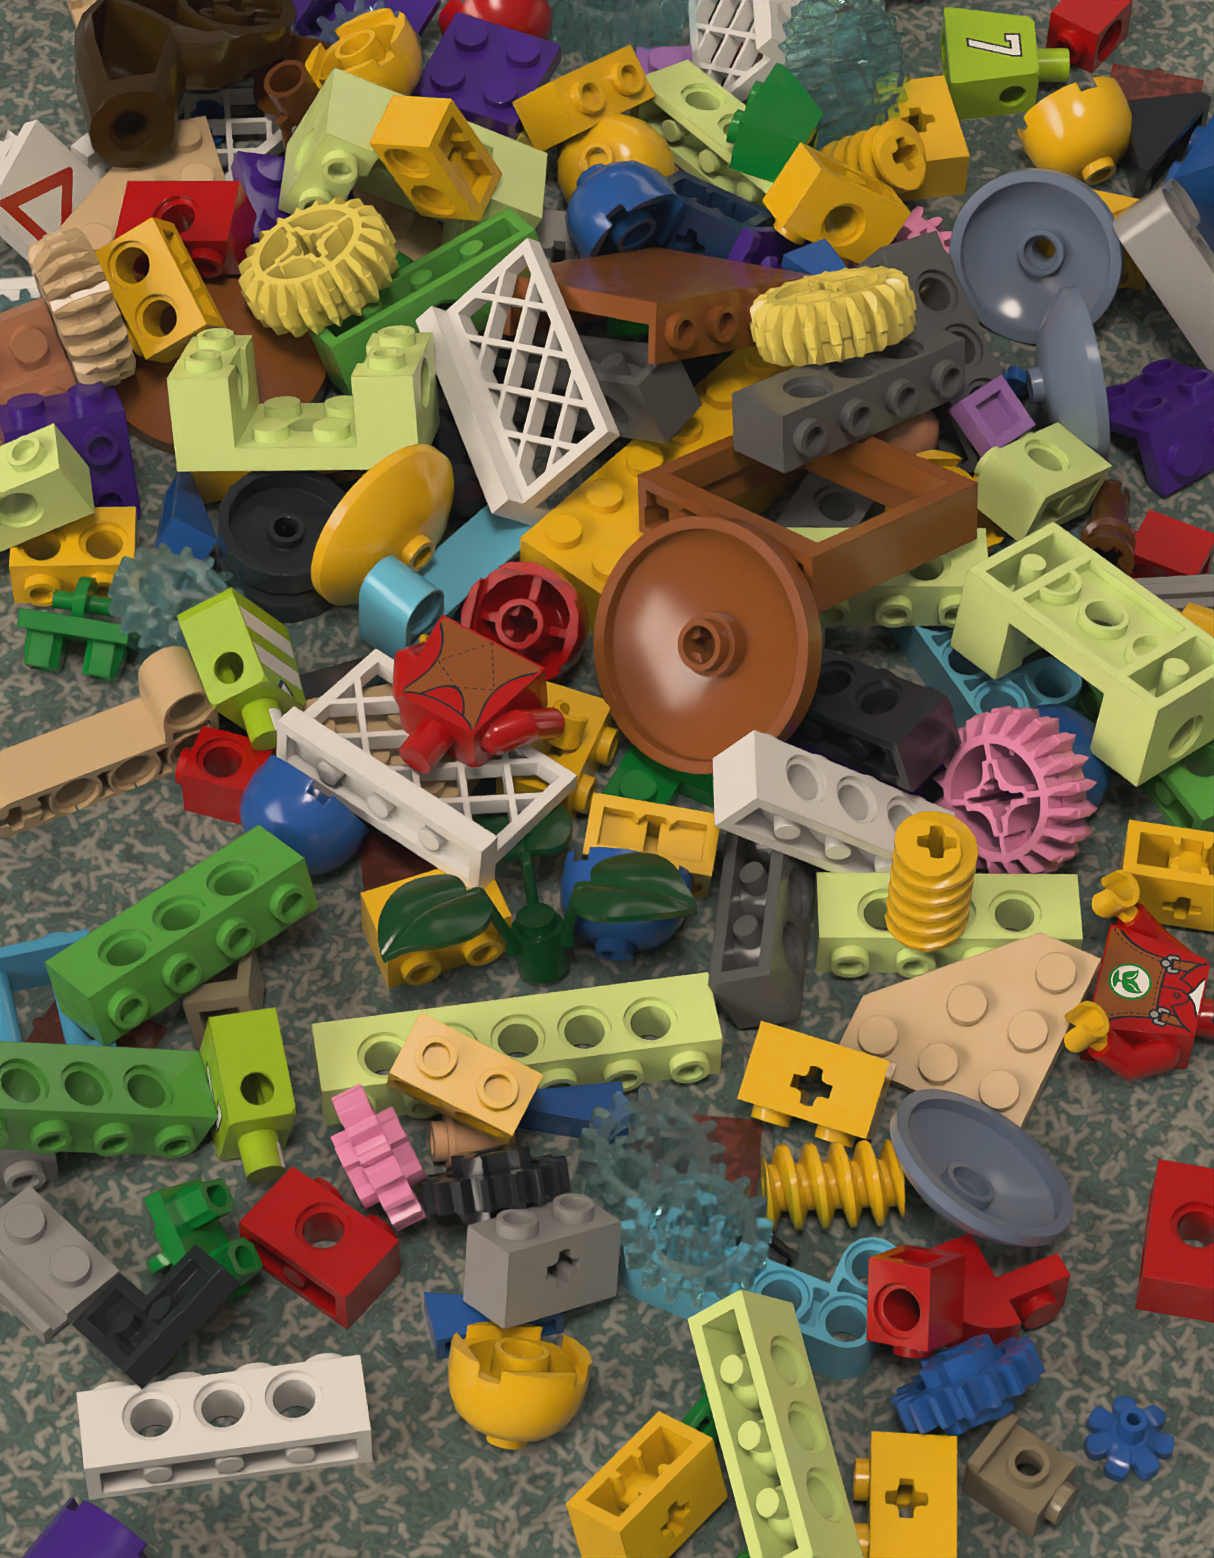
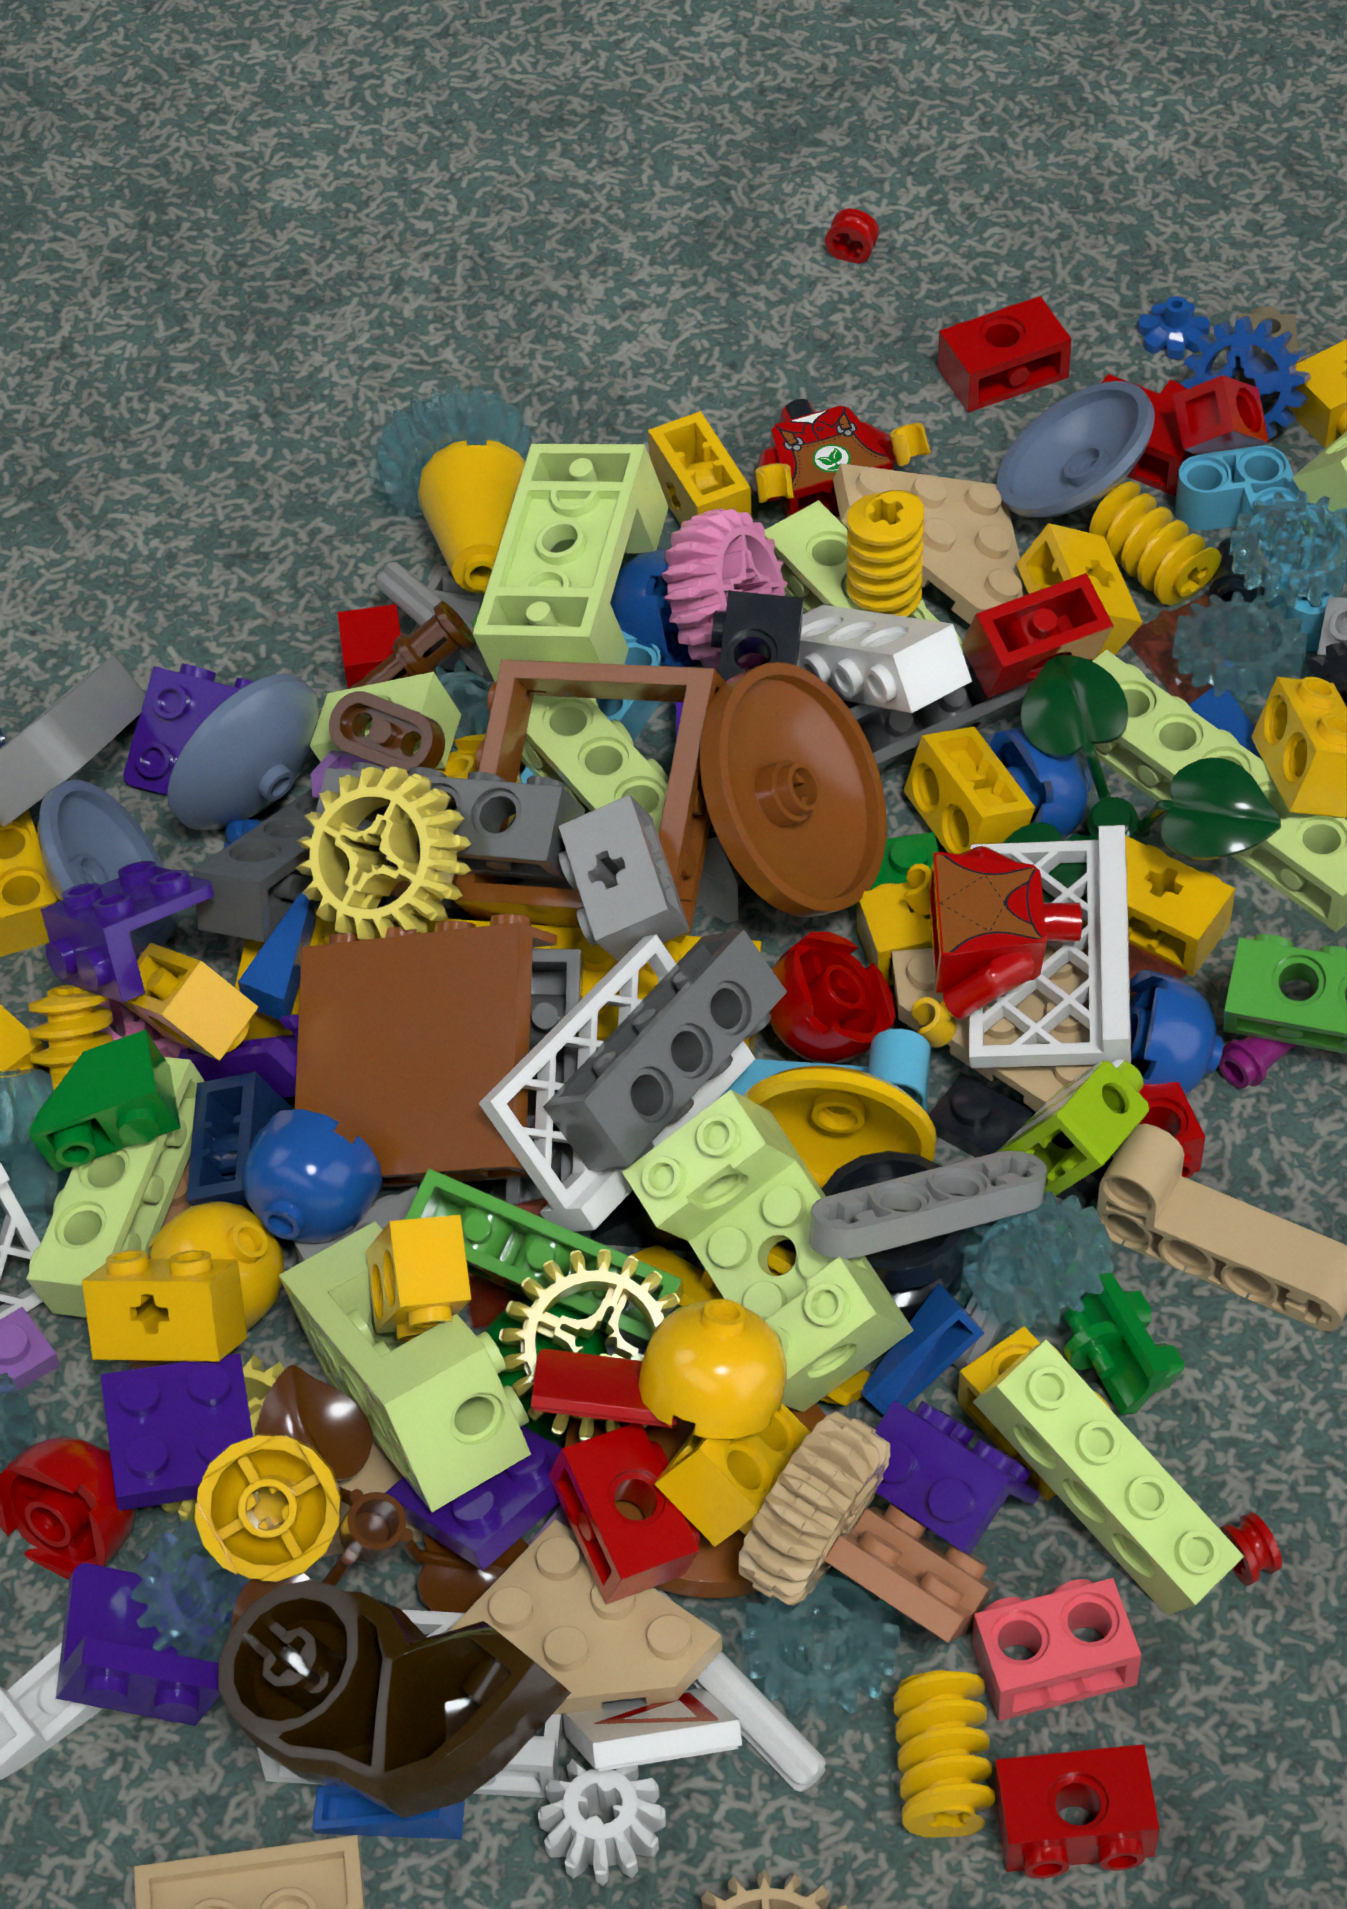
camera: 120 degrees left, 0 degrees up
(205, 266) = (714, 1369): none -> yellow cylinder
(242, 505) = (927, 1204): none -> light grey beam
(256, 220) = (590, 1387): none -> red slope
(509, 404) = (666, 1051): none -> dark grey brick
(680, 441) = (621, 877): none -> light grey brick
(731, 914) = (1018, 637): none -> red brick
(931, 181) = (93, 923): none -> dark purple bracket
(1003, 420) = (391, 735): none -> reddish brown plate

